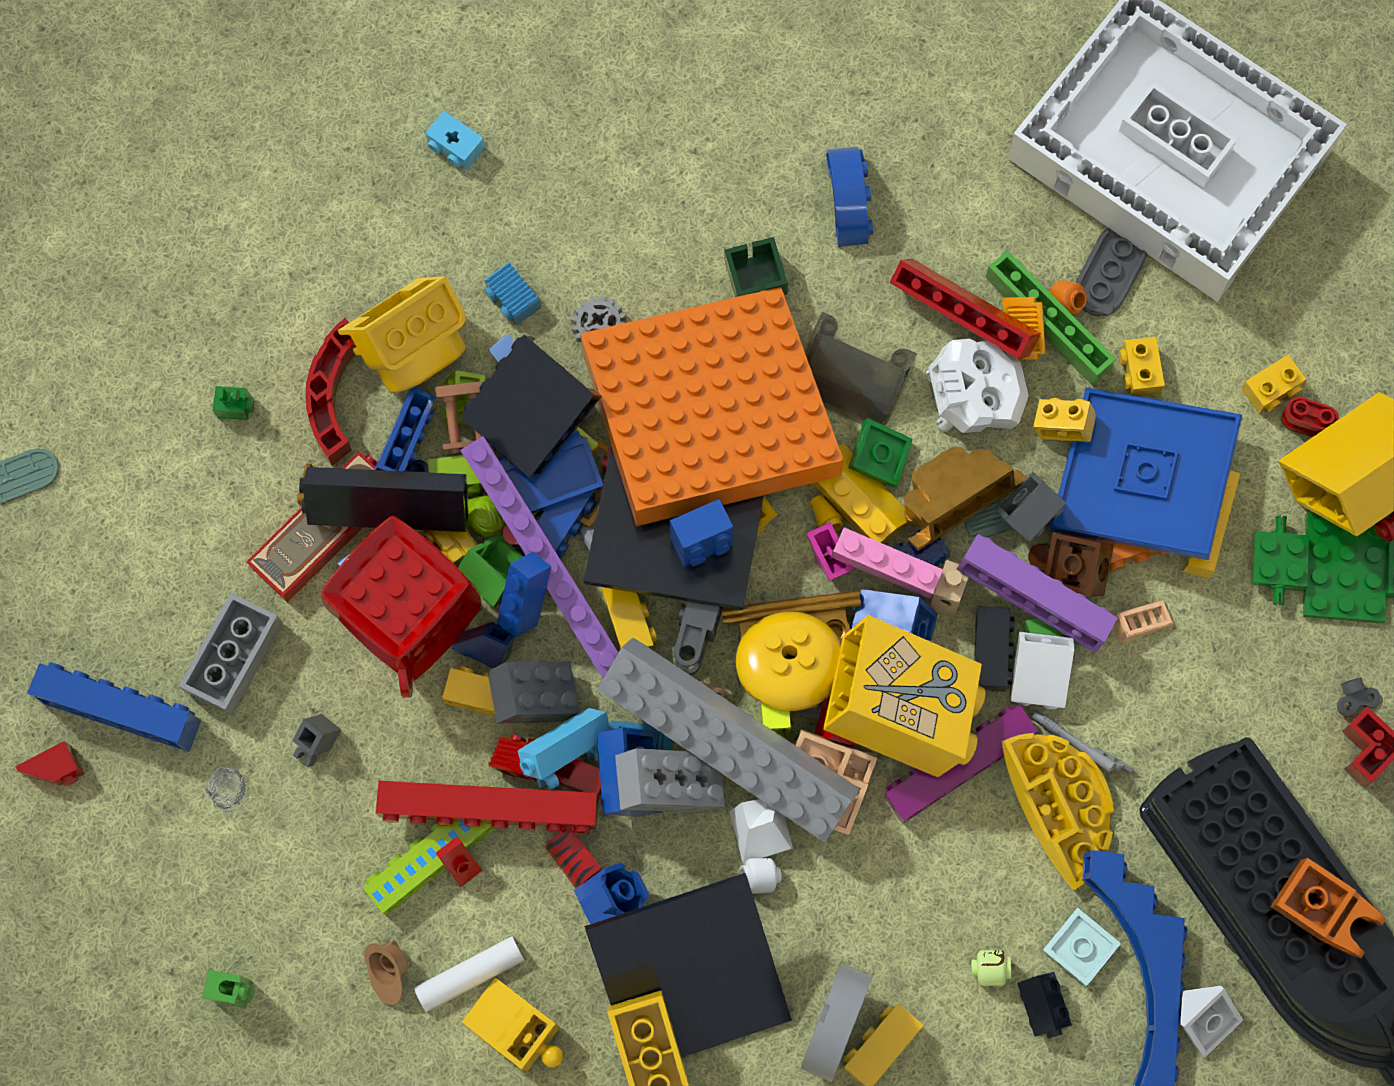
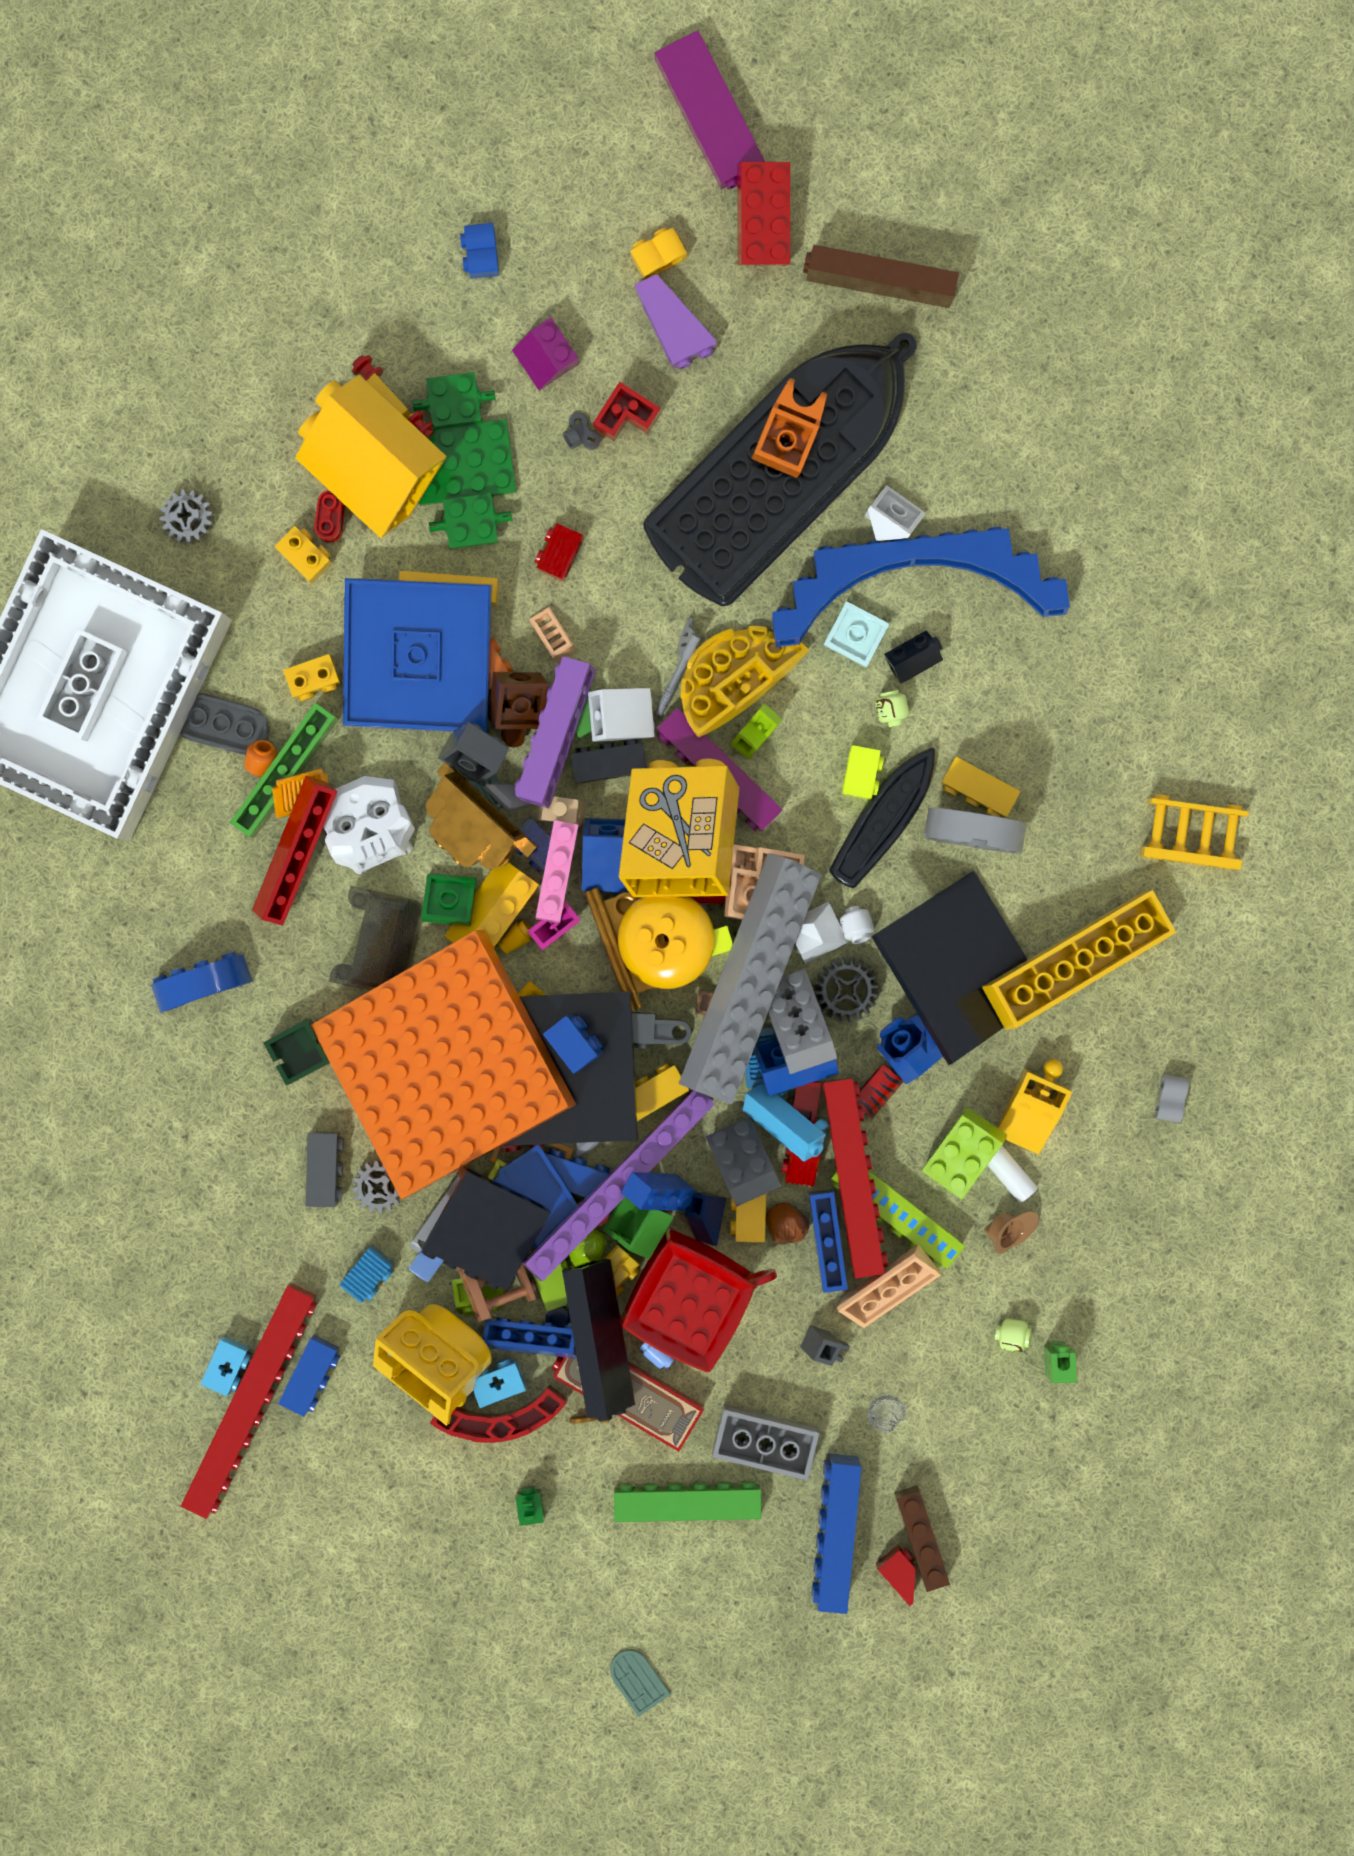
camera: 110 degrees left, 15 degrees up
(82, 797) = (922, 1538): none -> reddish brown brick
(190, 562) = (687, 1502): none -> bright green brick
(271, 947) = (1014, 1335): none -> yellowish green head
(358, 822) = (885, 1291): none -> light nougat slope
(369, 413) = (512, 1383): none -> medium azure brick
(416, 156) = (248, 1401): none -> red brick
(423, 217) = (310, 1376): none -> blue brick
(426, 766) = (828, 1241): none -> blue brick
(455, 728) = (786, 1224): none -> dark orange hair
(458, 861) = (905, 1190): red plate -> none
(483, 934) = (964, 1153): none -> lime piece
(630, 273) = (323, 1169): none -> dark grey brick
(703, 841) = (861, 1005): none -> dark grey gear
(870, 932) = (884, 819): none -> black piece
(926, 918) = (861, 772): none -> neon yellow brick
(983, 528) = (506, 796): none -> light grey piece
(994, 811) = (756, 731): none -> lime brick
(1065, 420) = (381, 738): yellow brick -> none
(1230, 645) = (559, 552): none -> red brick
(1324, 282) = (176, 516): none -> light grey gear

